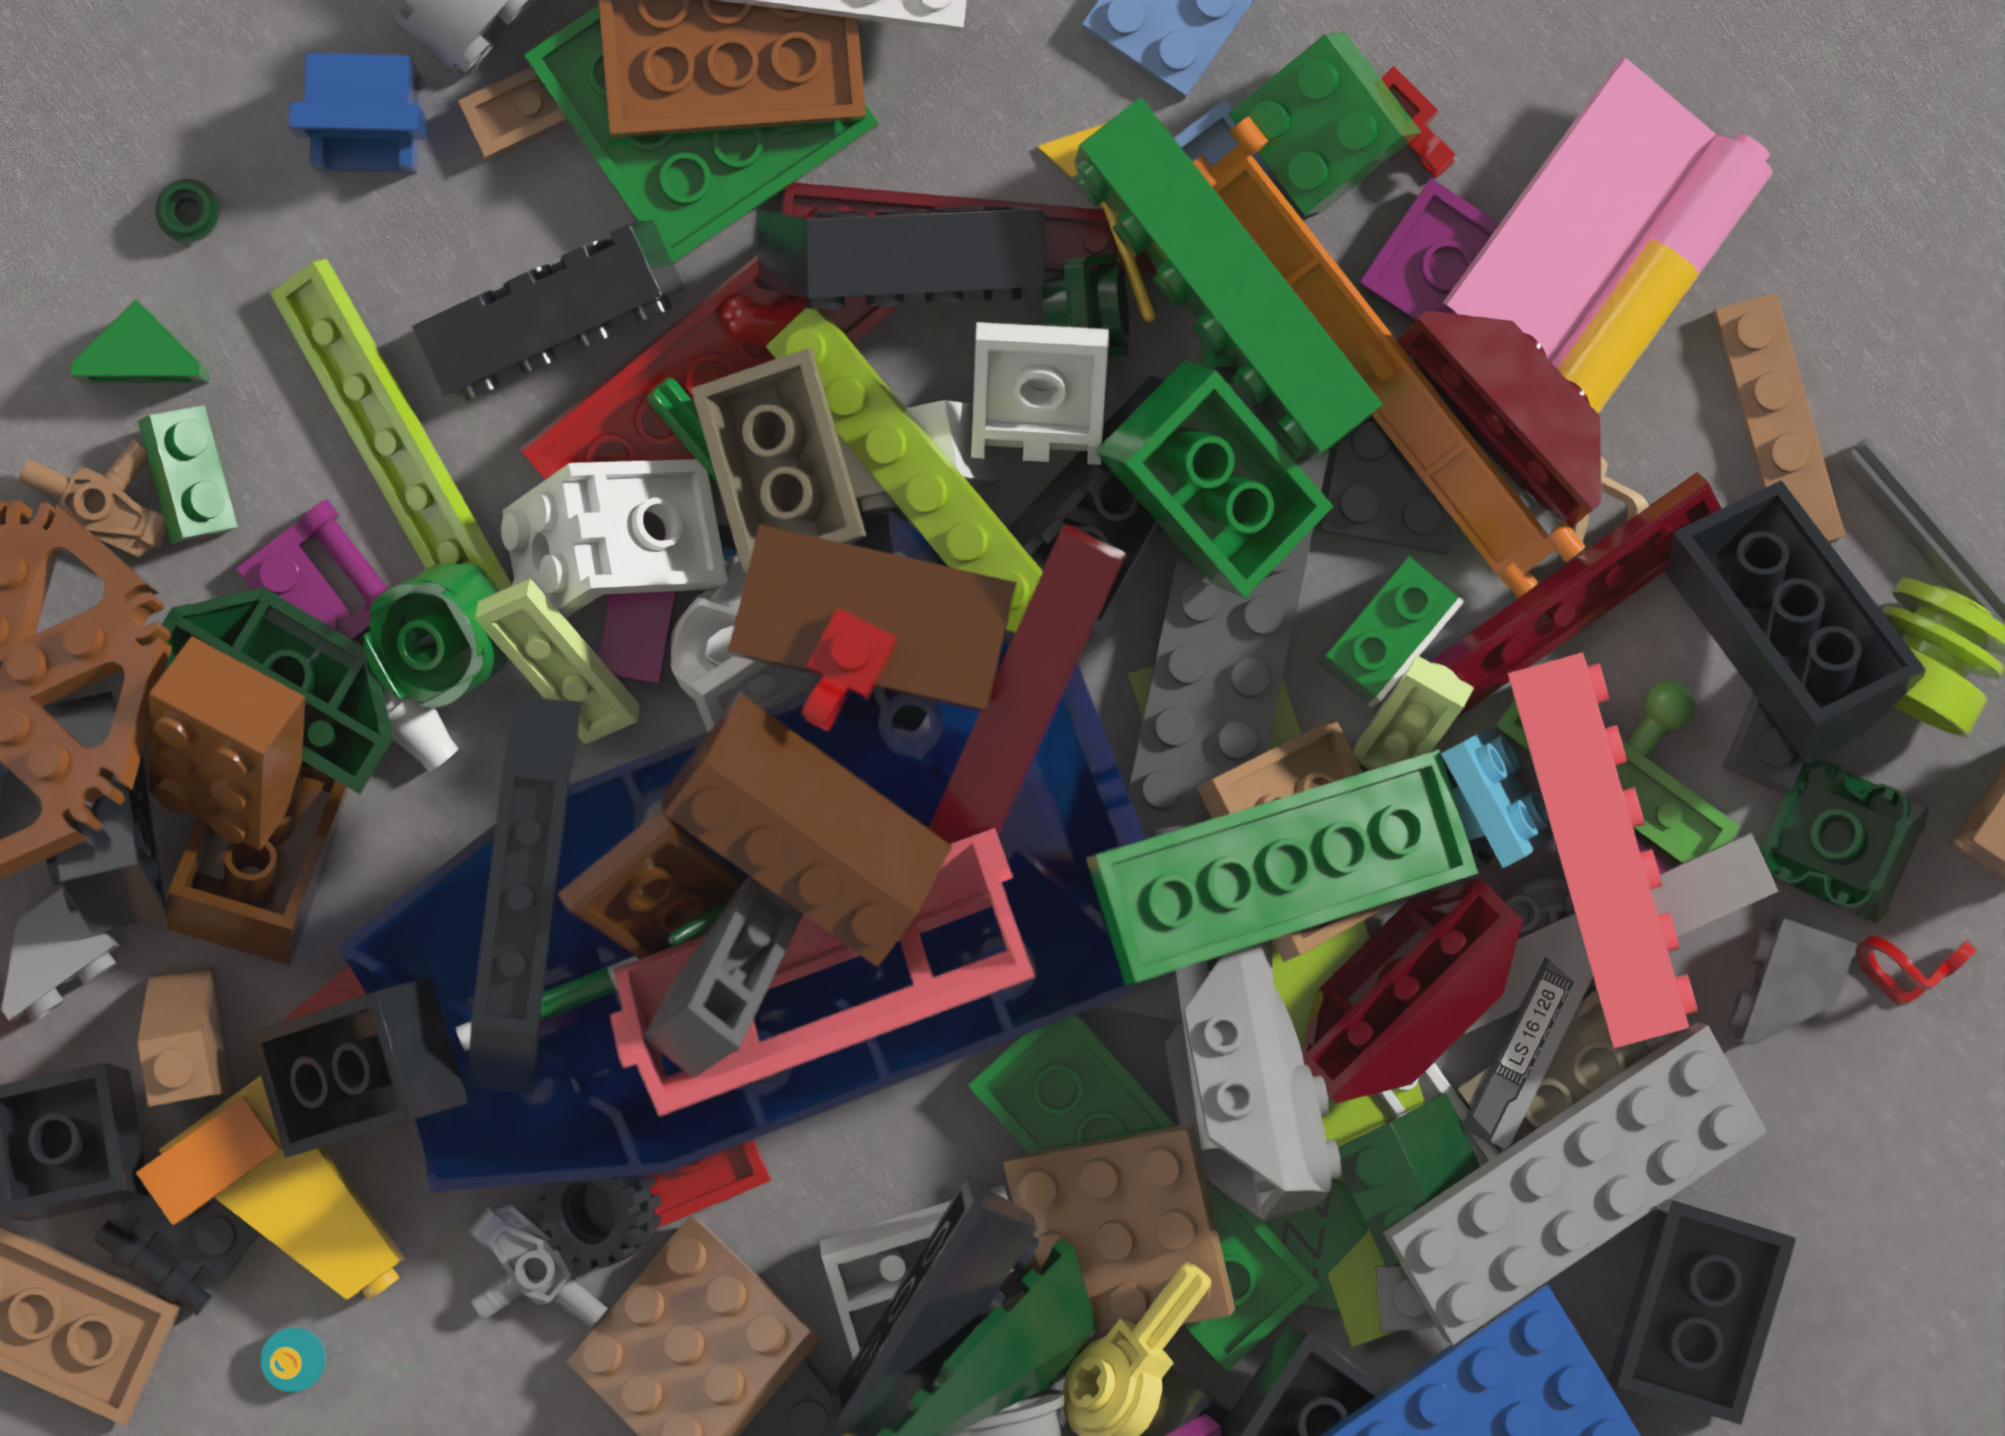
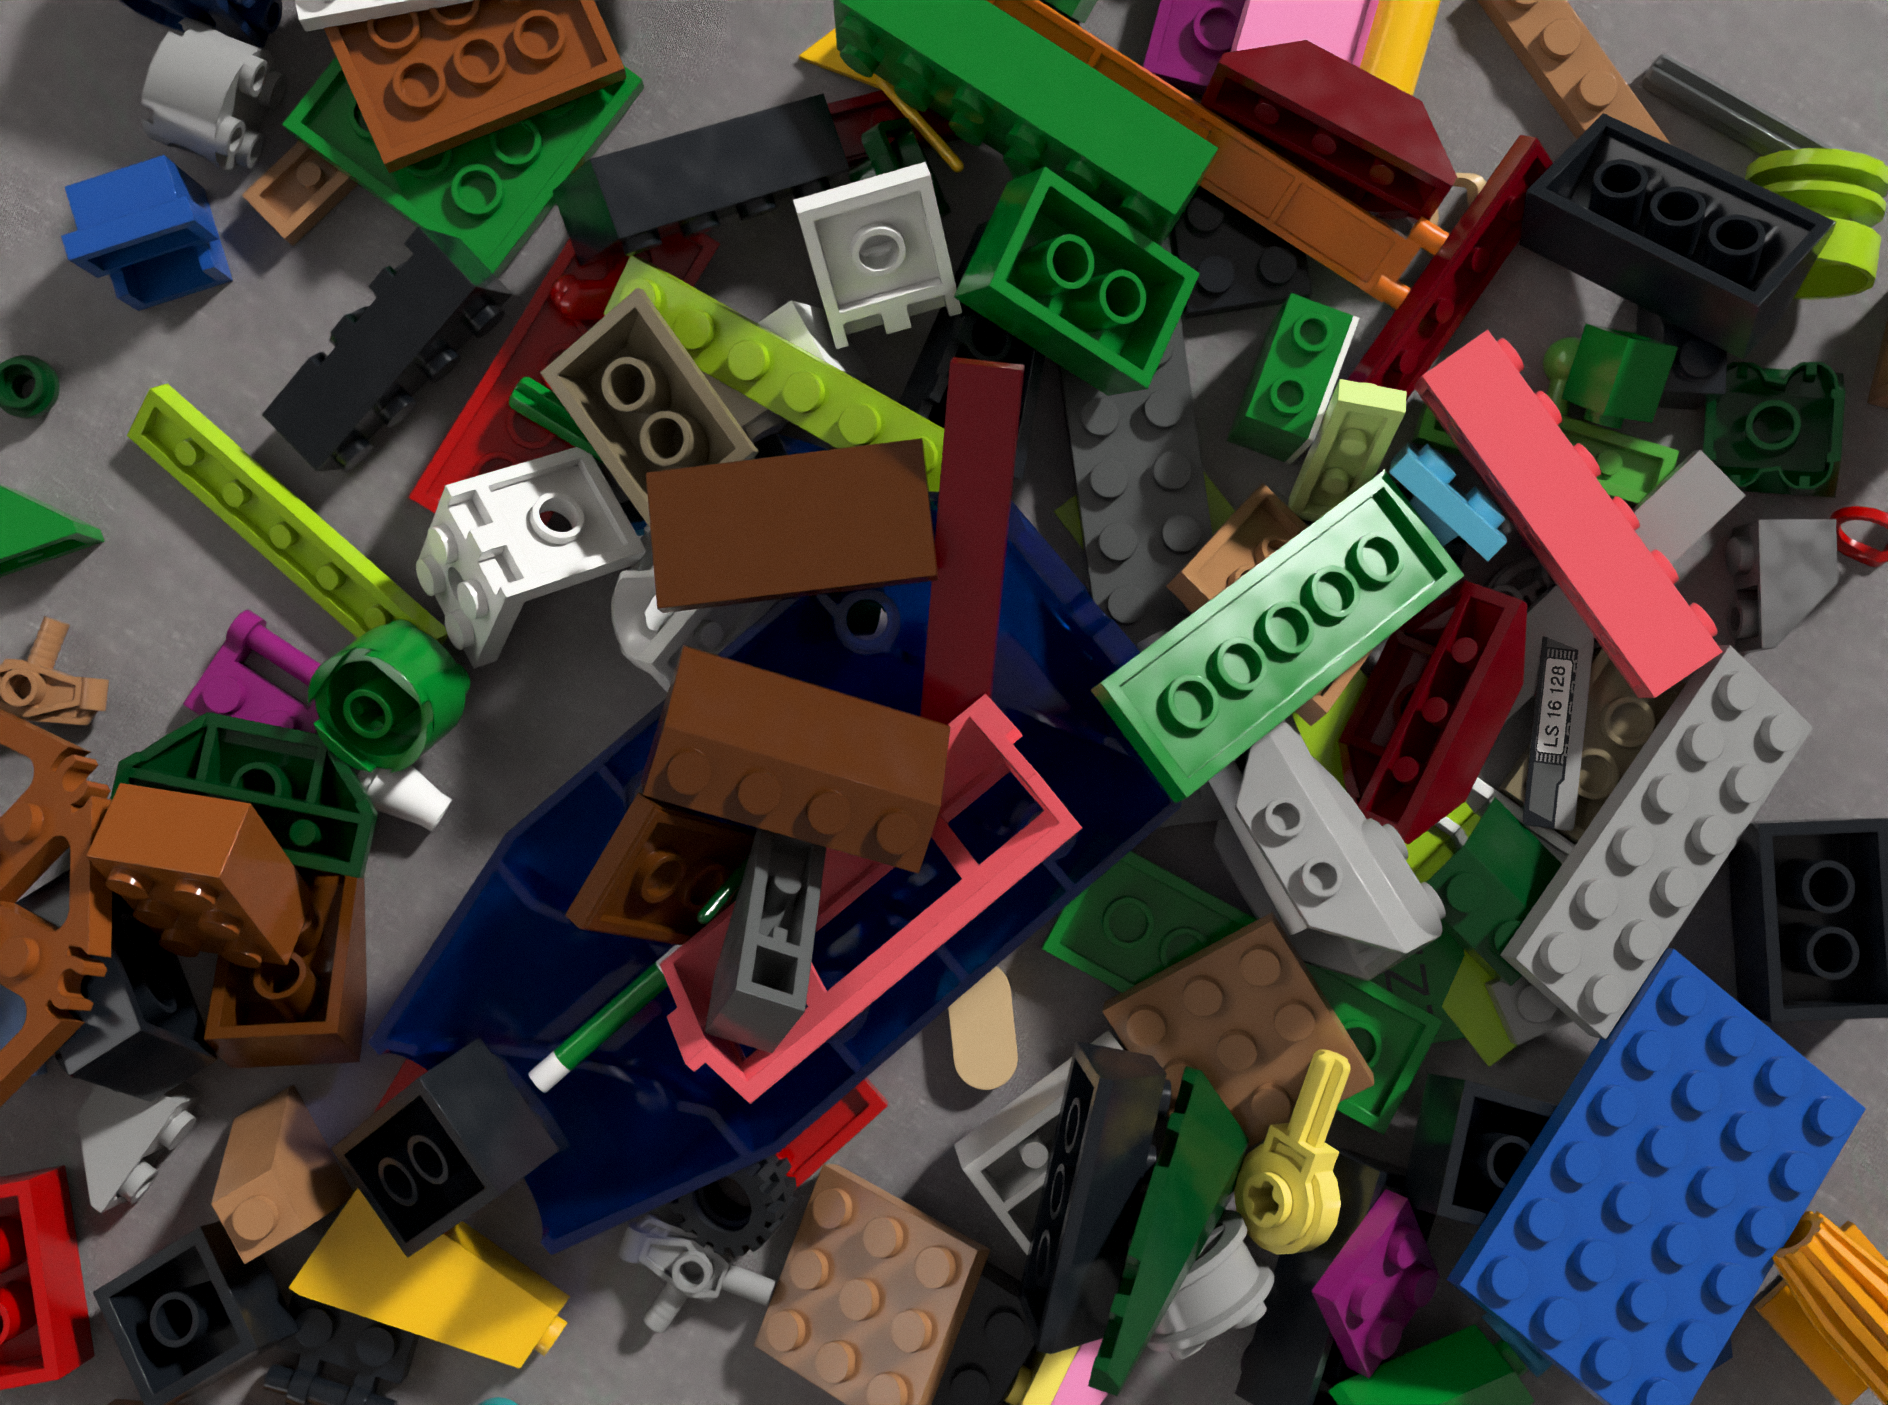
camera: 15 degrees left, 0 degrees up
(187, 474) = (106, 631): plate -> none
(208, 1160) = (336, 1284): orange tile -> none
(522, 894) = (530, 925): black slope -> none
(556, 658) = (507, 682): yellowish green plate -> none
(637, 634) = (582, 632): dark pink tile -> none
(848, 660) = (779, 573): red plate -> none
(886, 1141) = (984, 1032): none -> tan tile
(1700, 735) = (1618, 375): none -> green brick

